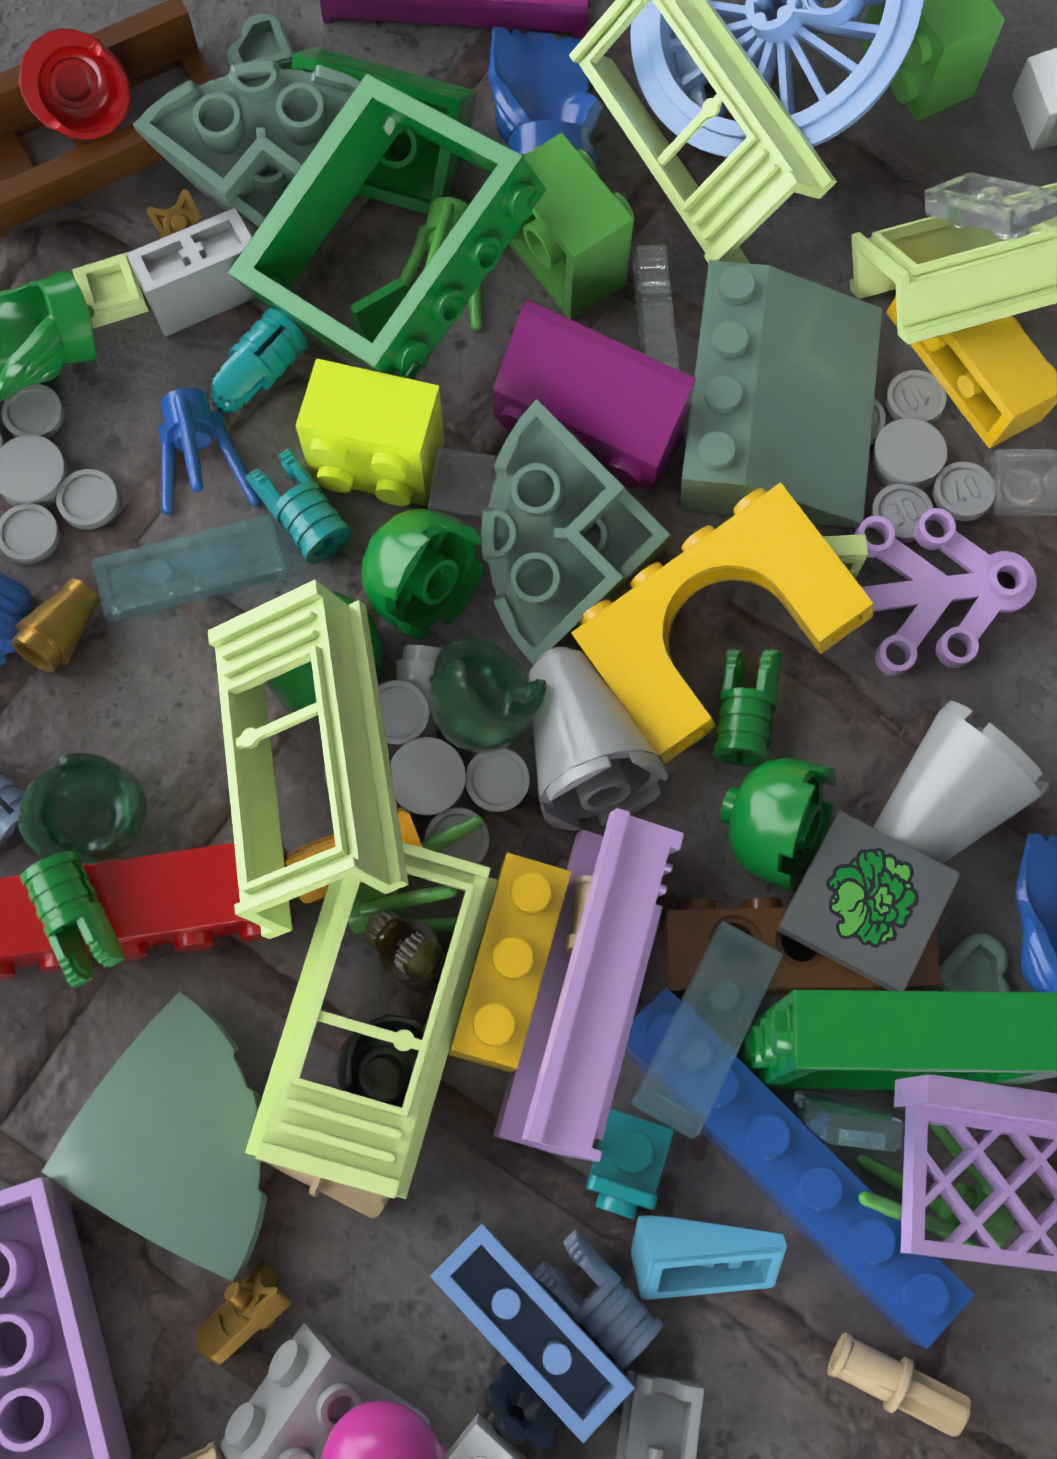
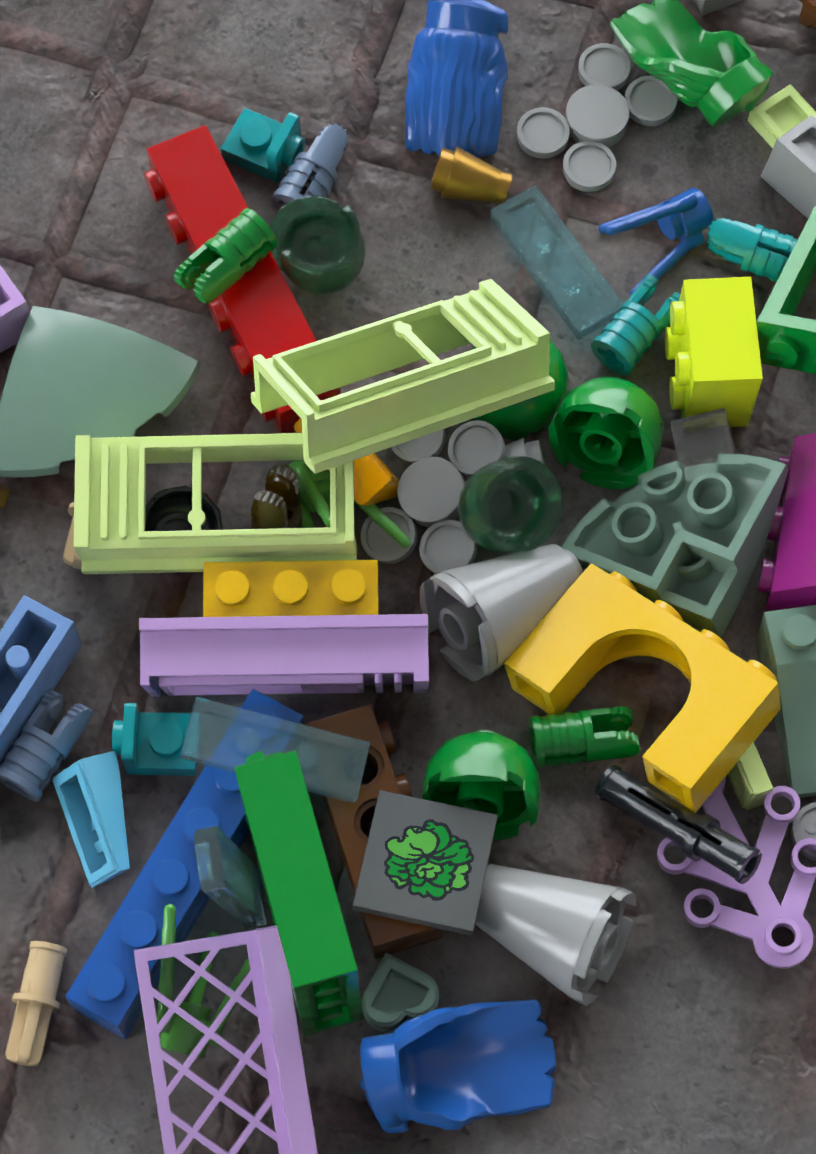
camera: 75 degrees right, 5 degrees down
(936, 589) = (697, 835): none -> black pin

